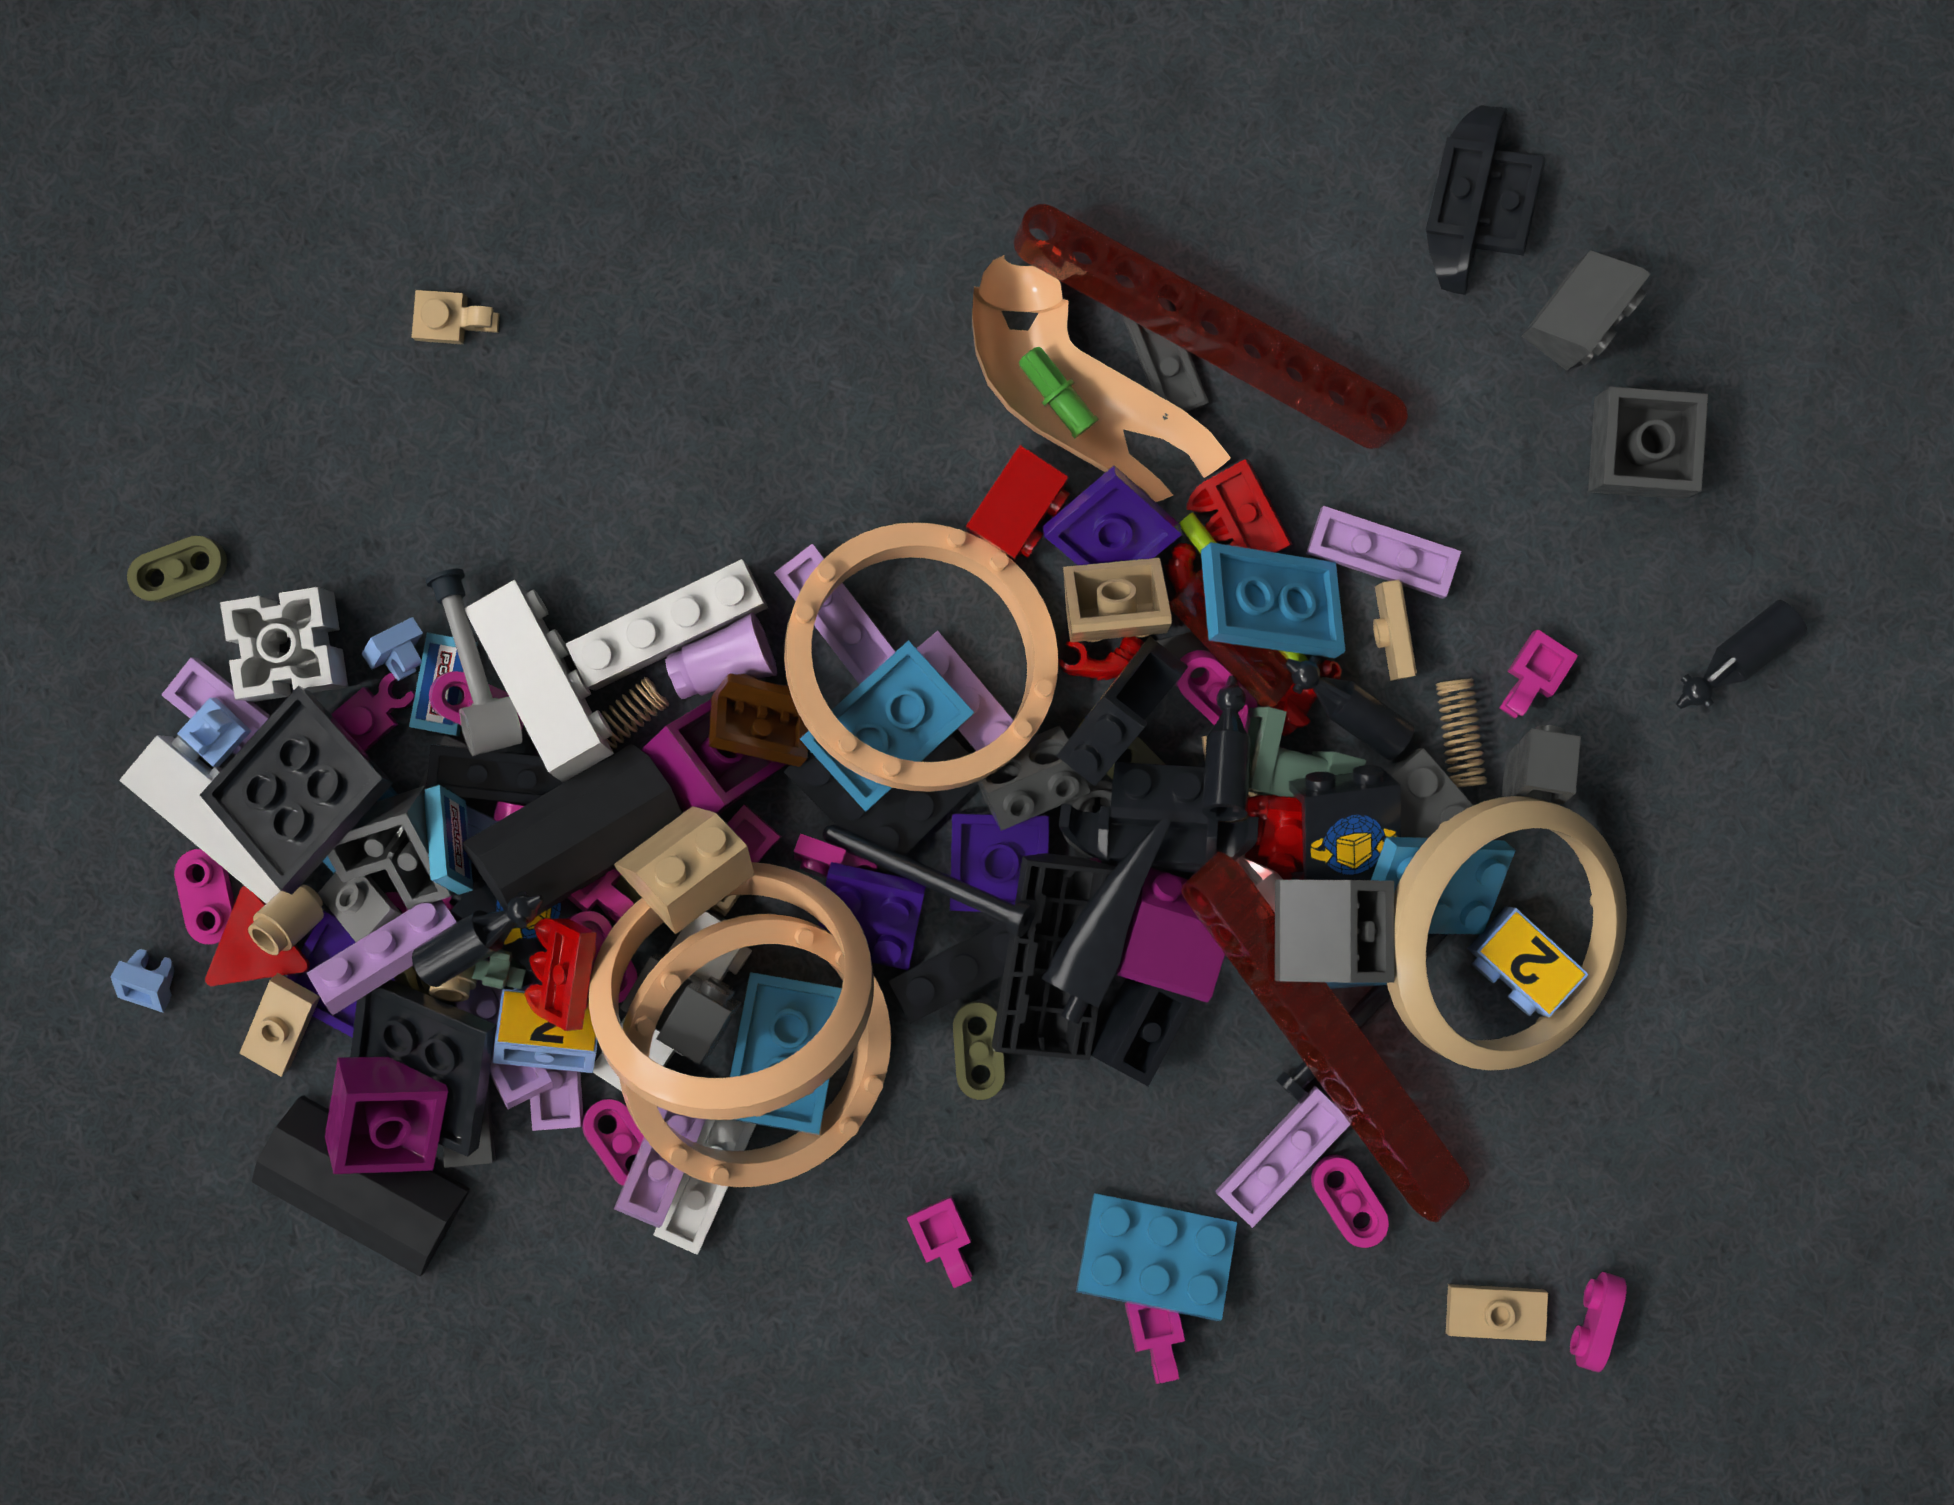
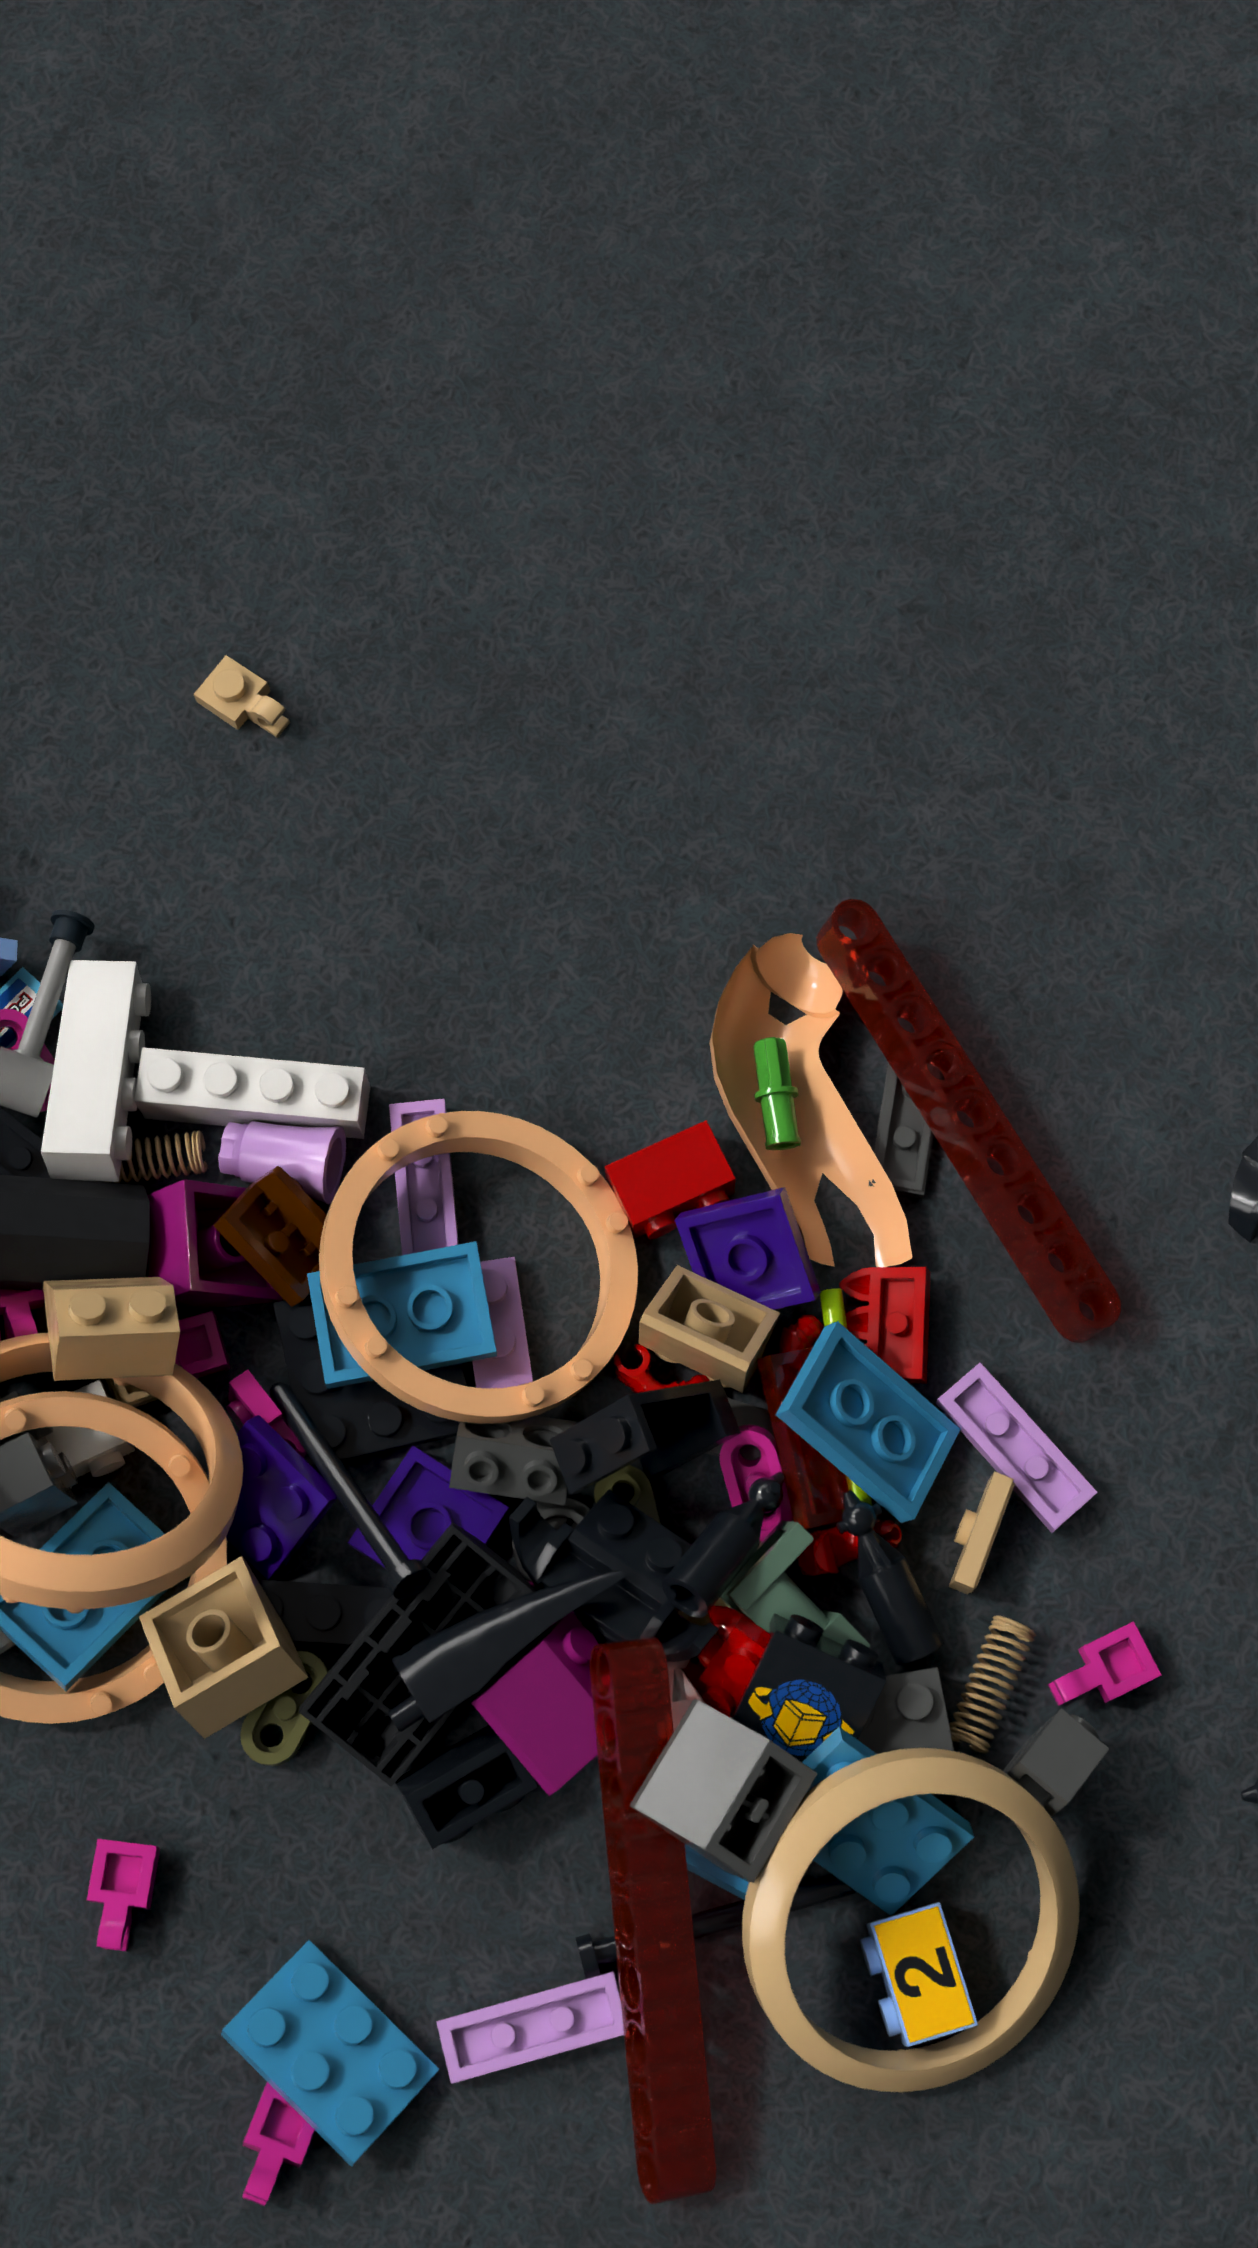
camera: 30 degrees right, 15 degrees down
(915, 1041) = (221, 1648): none -> tan slope
(1349, 1199) = (574, 2123): dark pink plate -> none

